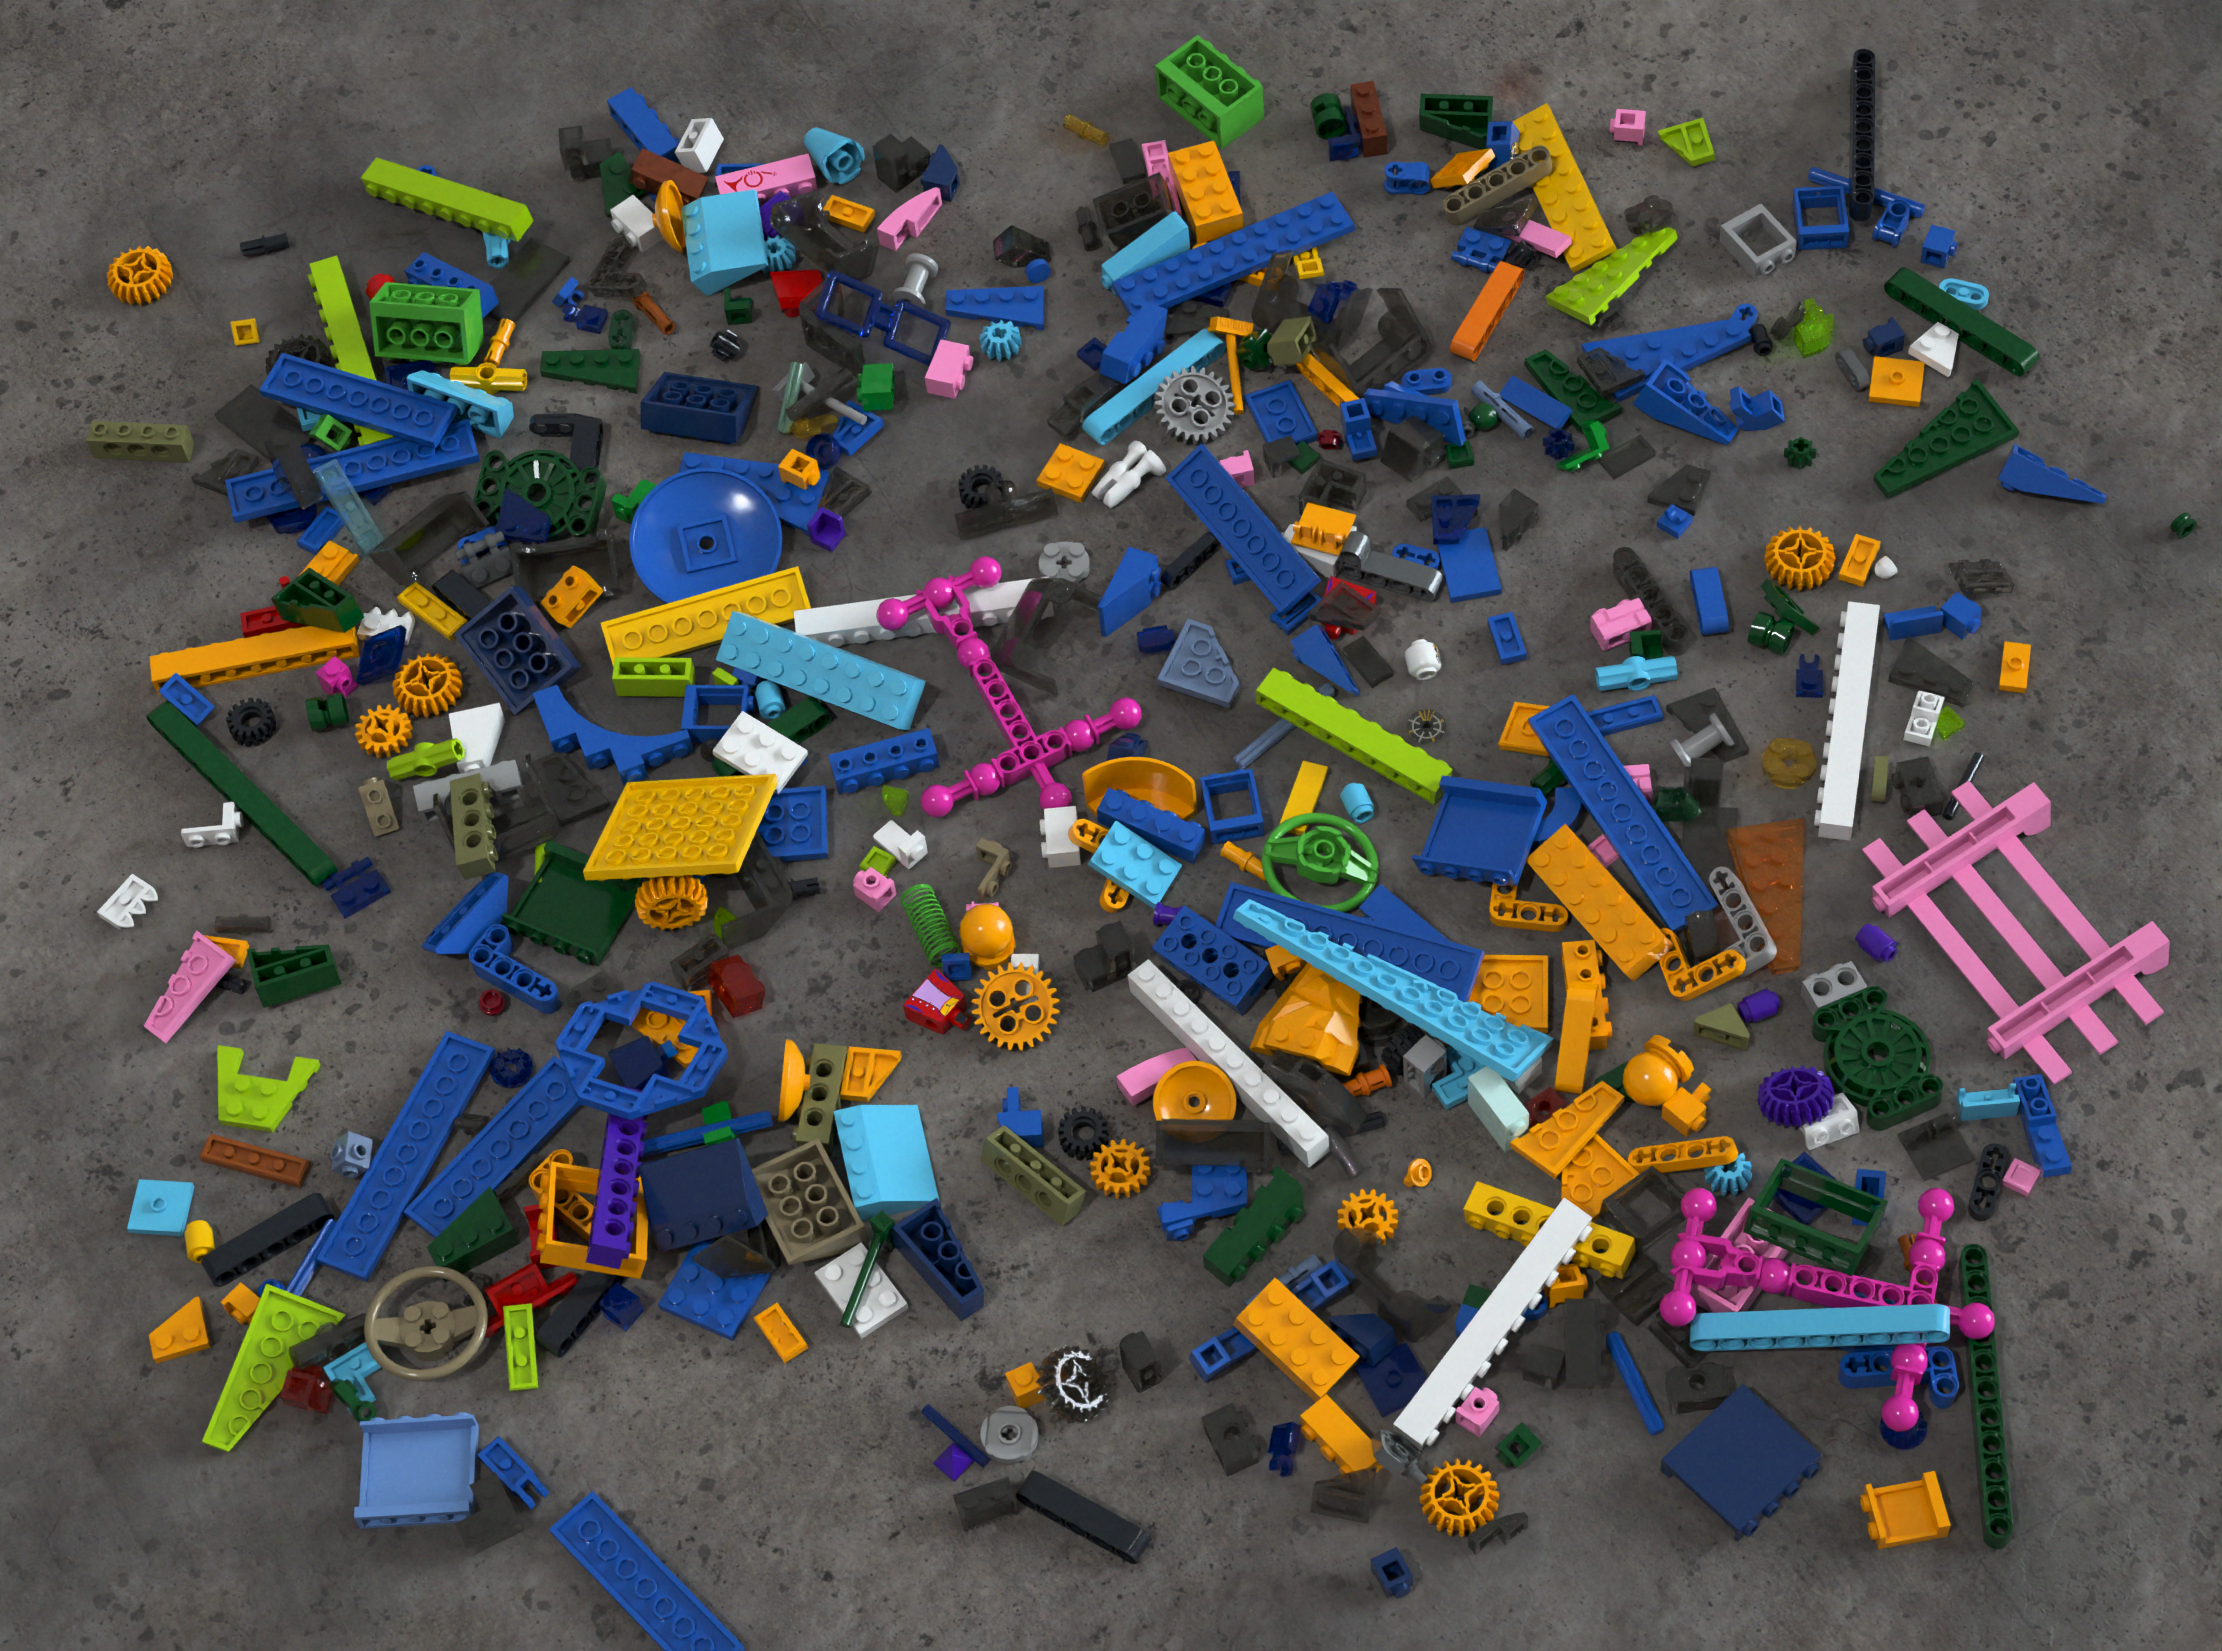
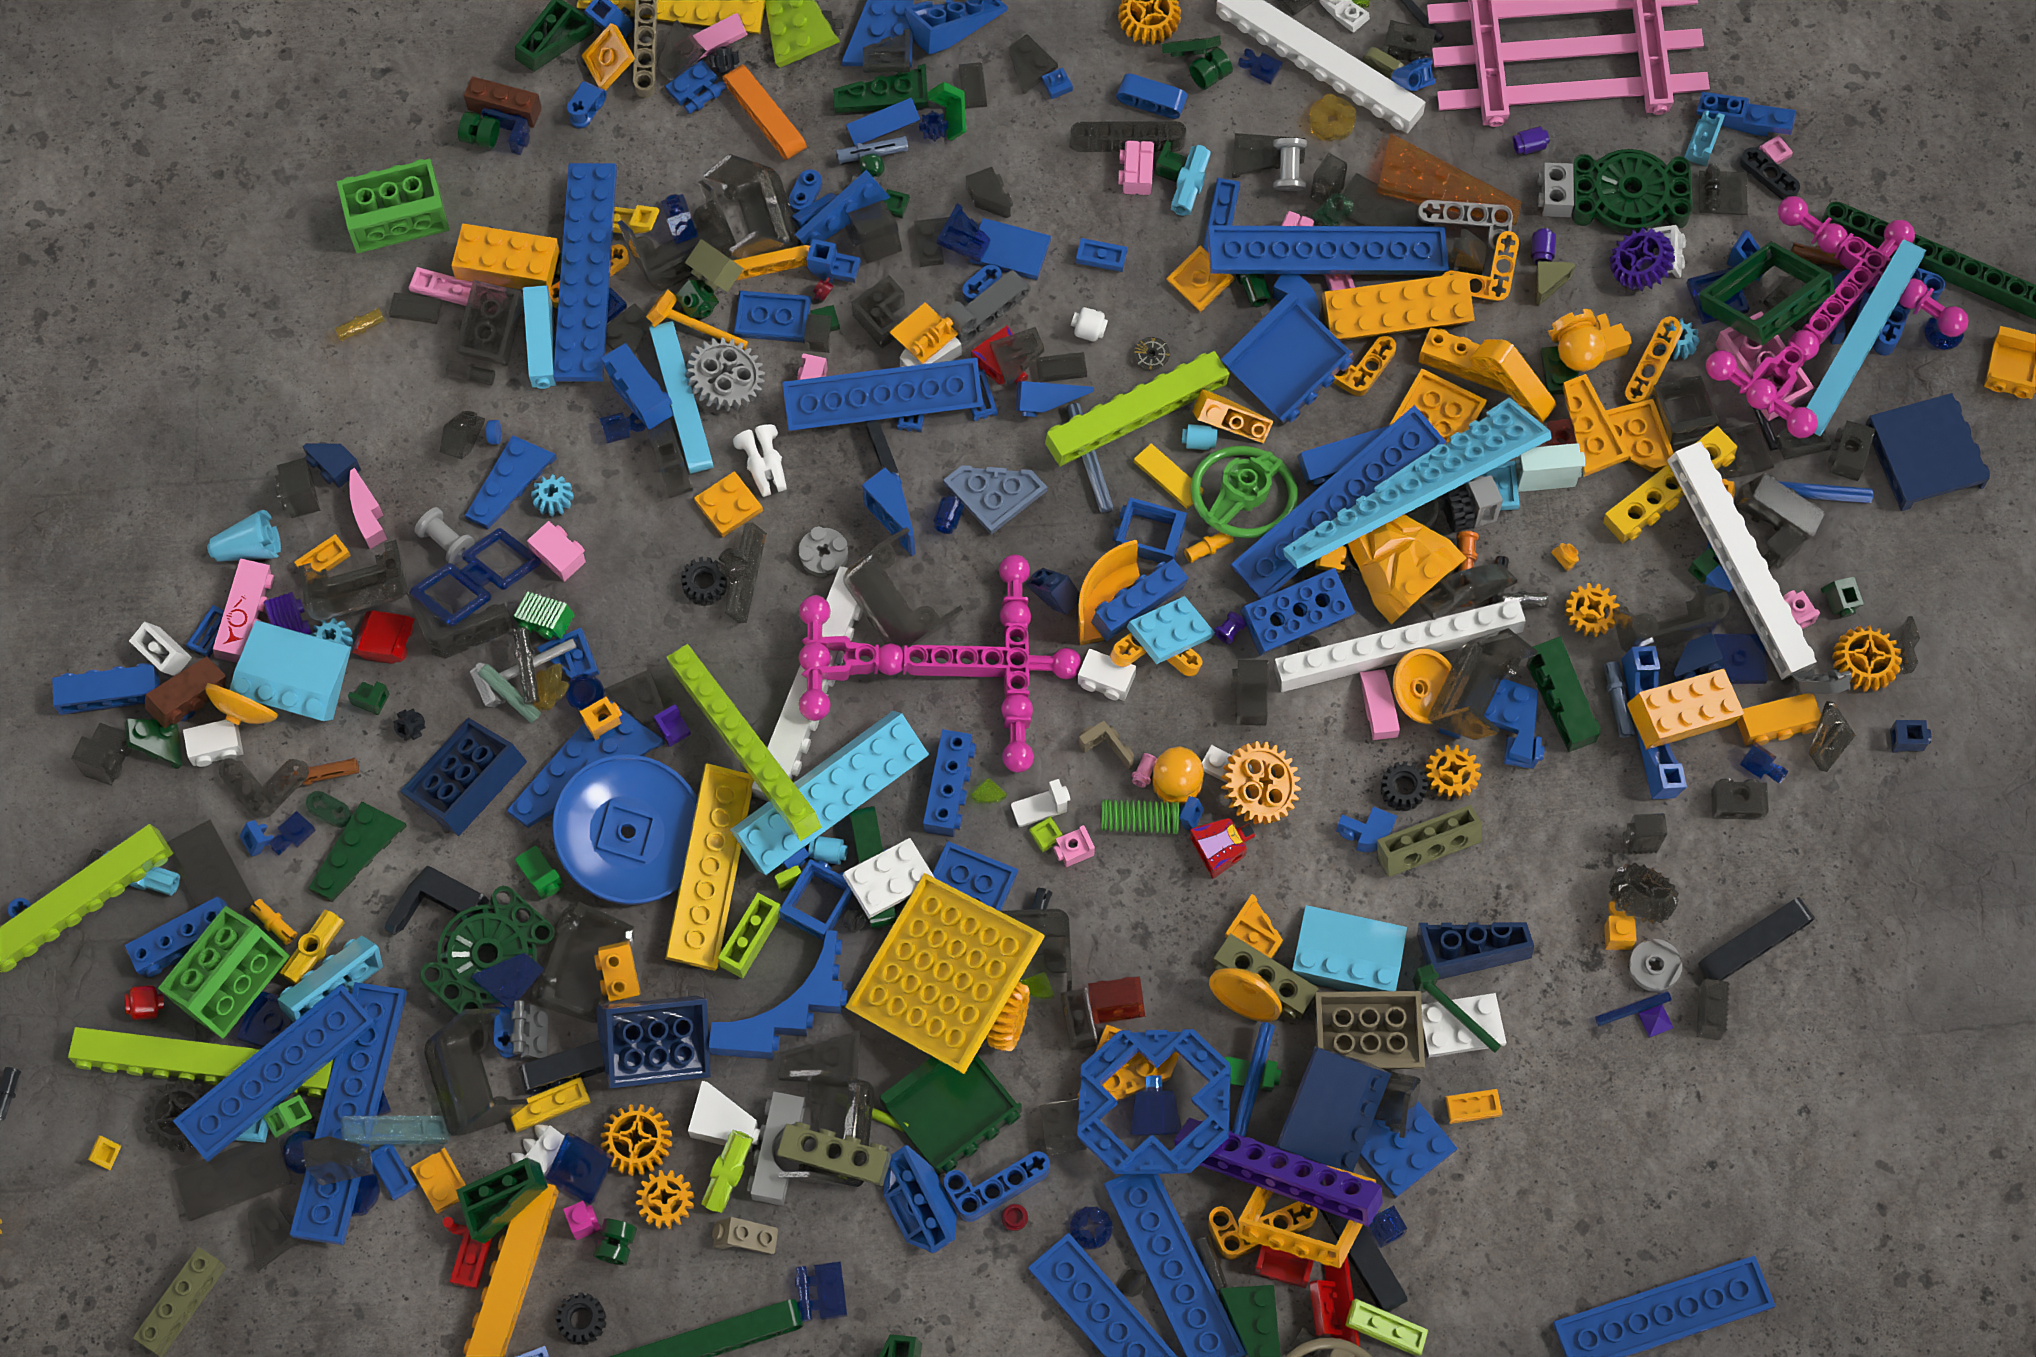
camera: 70 degrees left, 10 degrees up
(823, 577) = (744, 743): none -> lime brick
(1393, 815) = (1231, 416): none -> light orange slope
(1884, 810) = (1414, 75): none -> blue piece

